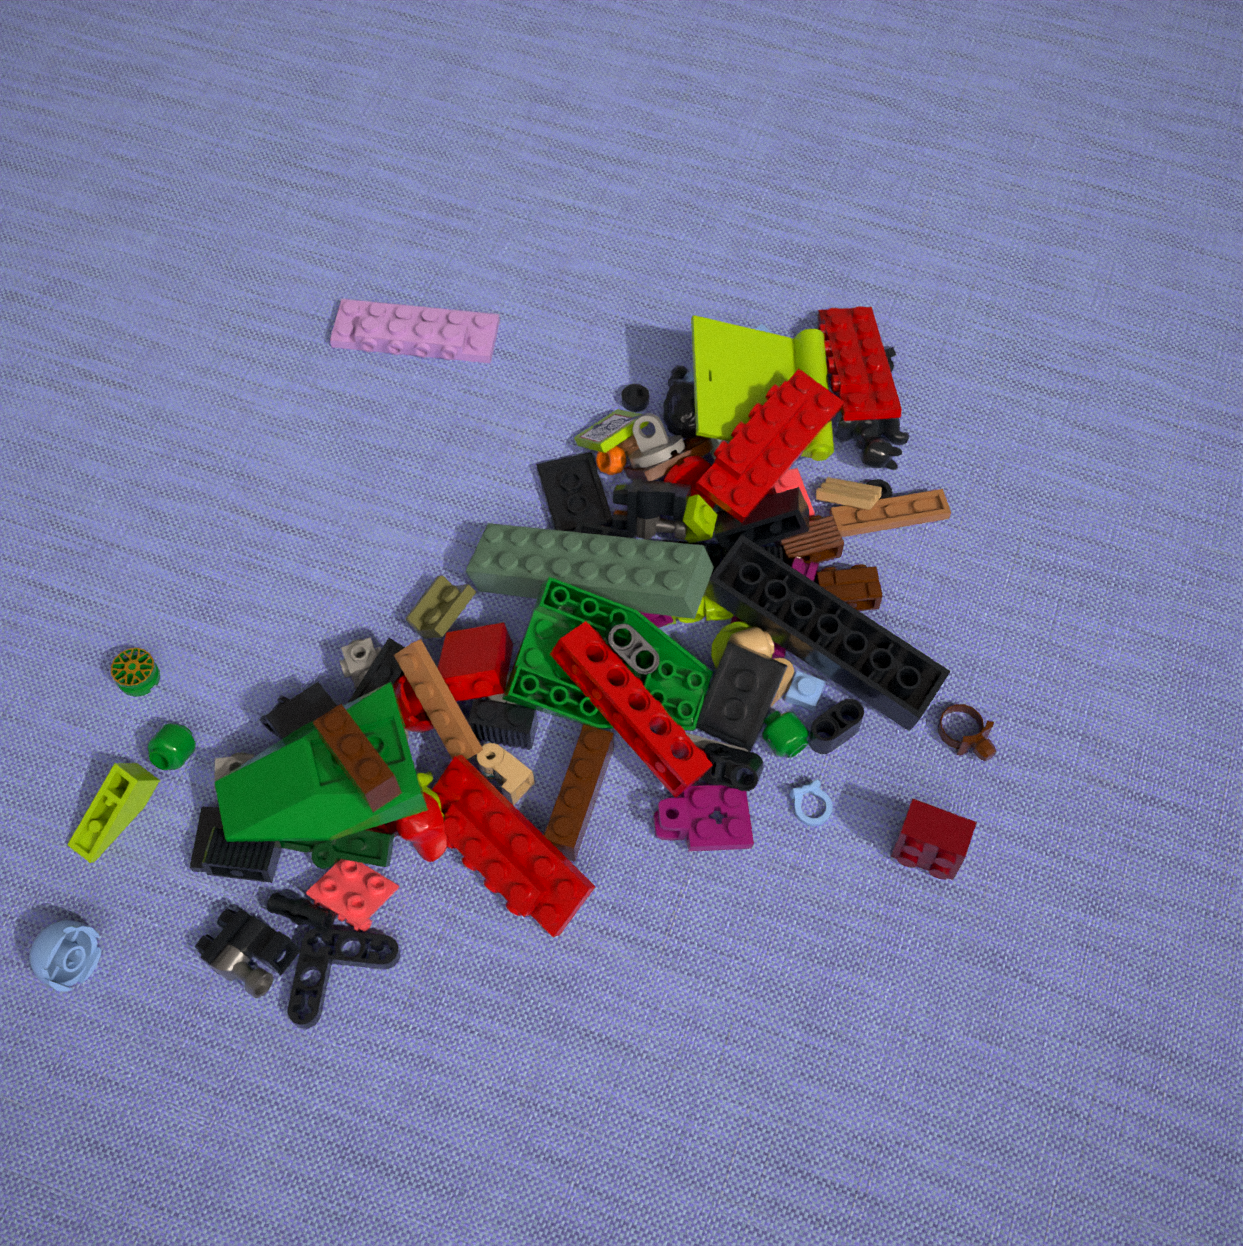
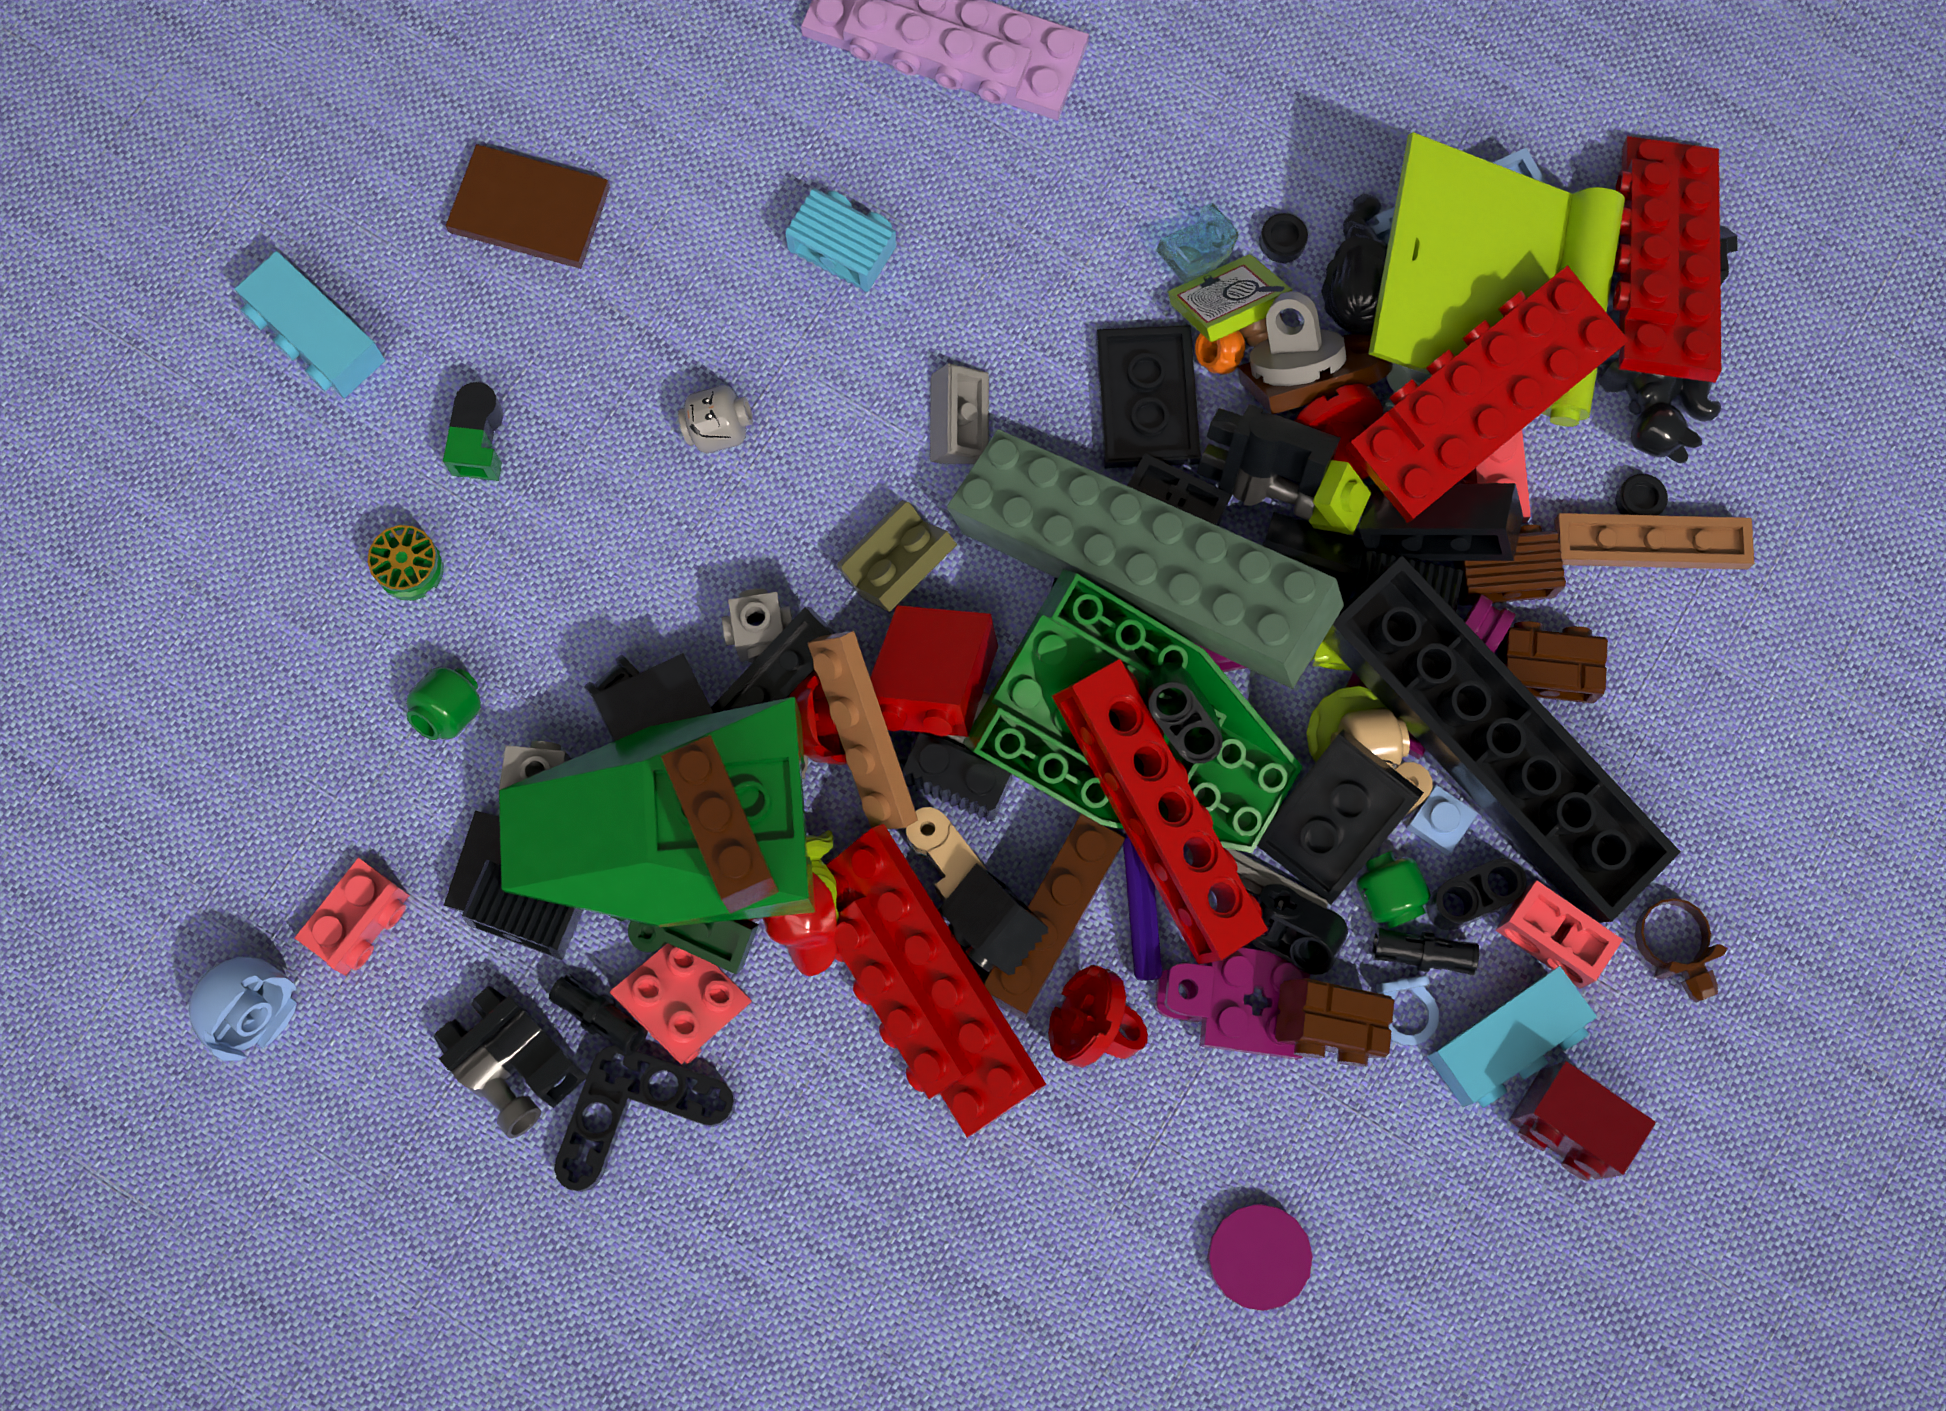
camera: 10 degrees right, 15 degrees up
(56, 551) = (308, 326): none -> medium azure brick
(113, 809) = (342, 786): lime slope -> none
(131, 888) = (353, 918): none -> coral bracket
(165, 591) = (471, 431): none -> leg
(182, 463) = (528, 206): none -> reddish brown tile
(315, 554) = (715, 419): none -> light grey head
(374, 444) = (841, 238): none -> medium azure brick
(462, 525) = (958, 414): none -> light grey slope
(541, 795) = (992, 921): none -> black brick
(588, 409) = (1199, 246): none -> clear light blue bracket
(619, 845) = (1092, 1019): none -> red tile
(634, 779) = (1142, 916): none -> dark purple axle
(755, 971) = (1260, 1257): none -> magenta tile
(767, 814) = (1334, 1020): none -> reddish brown brick
(814, 766) = (1425, 951): none -> black pin
(849, 493) = (1595, 493): tan tile -> none
(879, 804) = (1513, 1039): none -> medium azure brick
(891, 736) = (1559, 934): none -> coral brick

